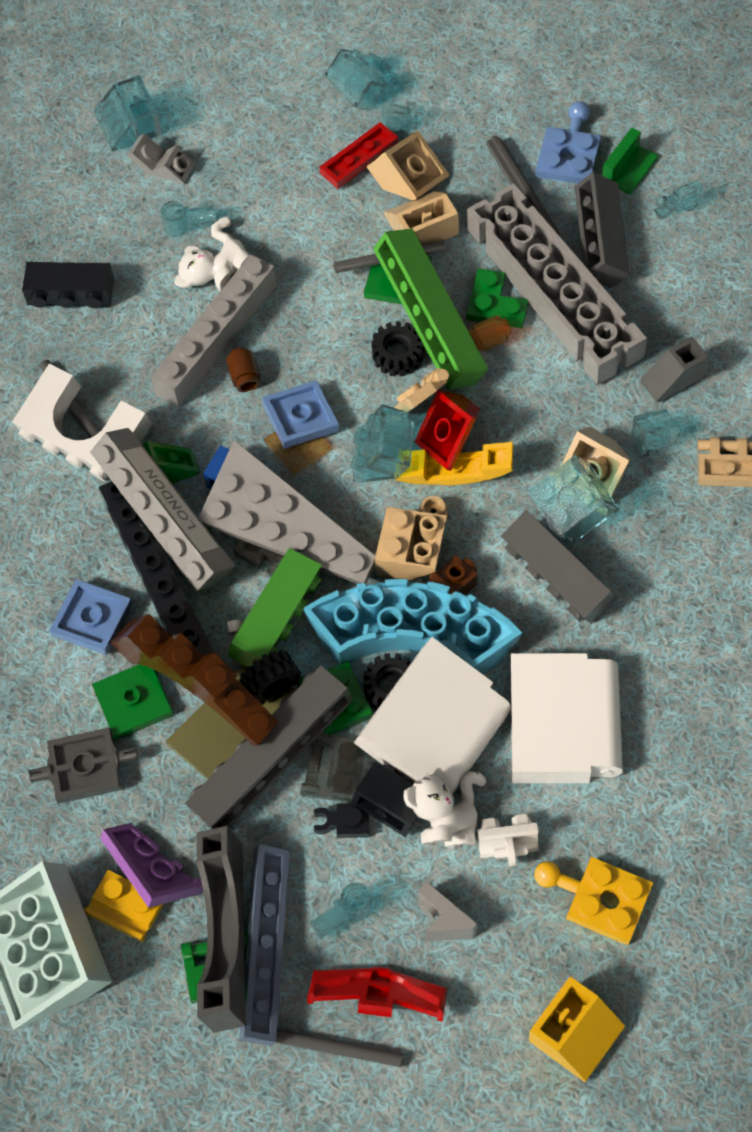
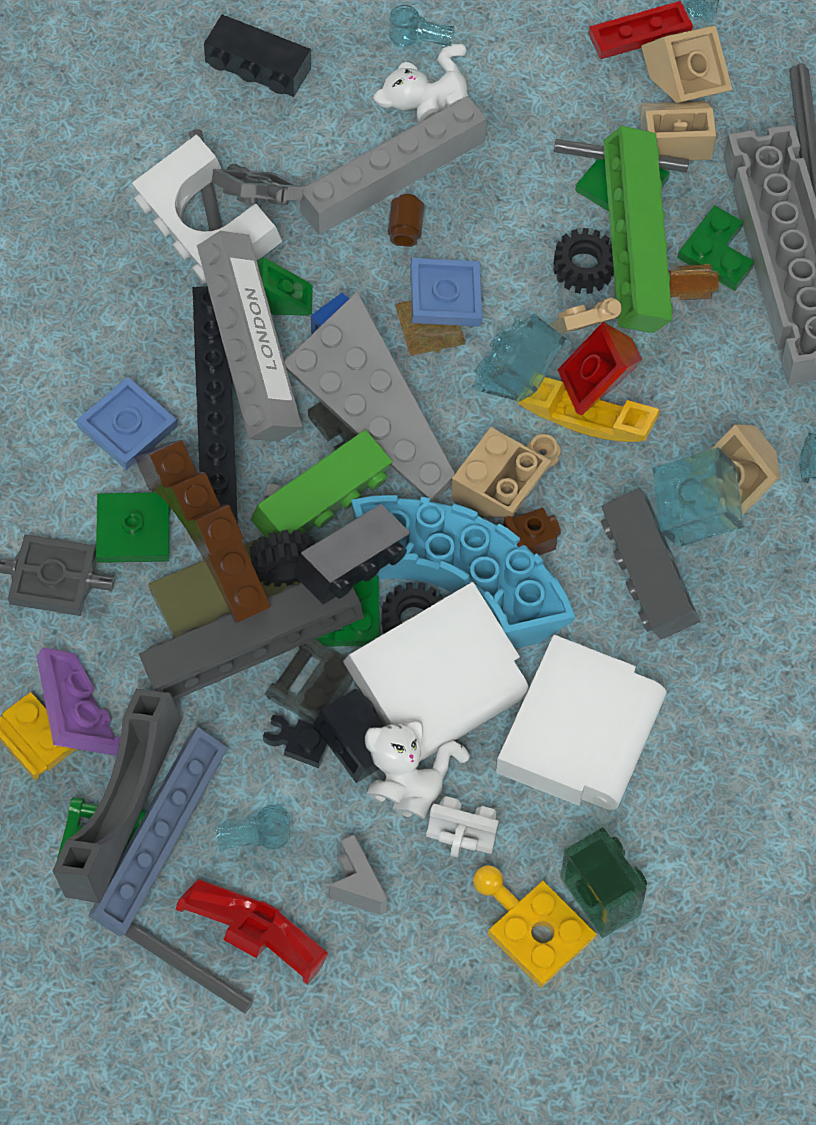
camera: 15 degrees right, 0 degrees up
(113, 386) = (253, 185): none -> dark grey plate
(327, 653) = (352, 554): none -> brick
(576, 1029) = (443, 1048): yellow slope -> none
(642, 838) = (603, 881): none -> clear green brick

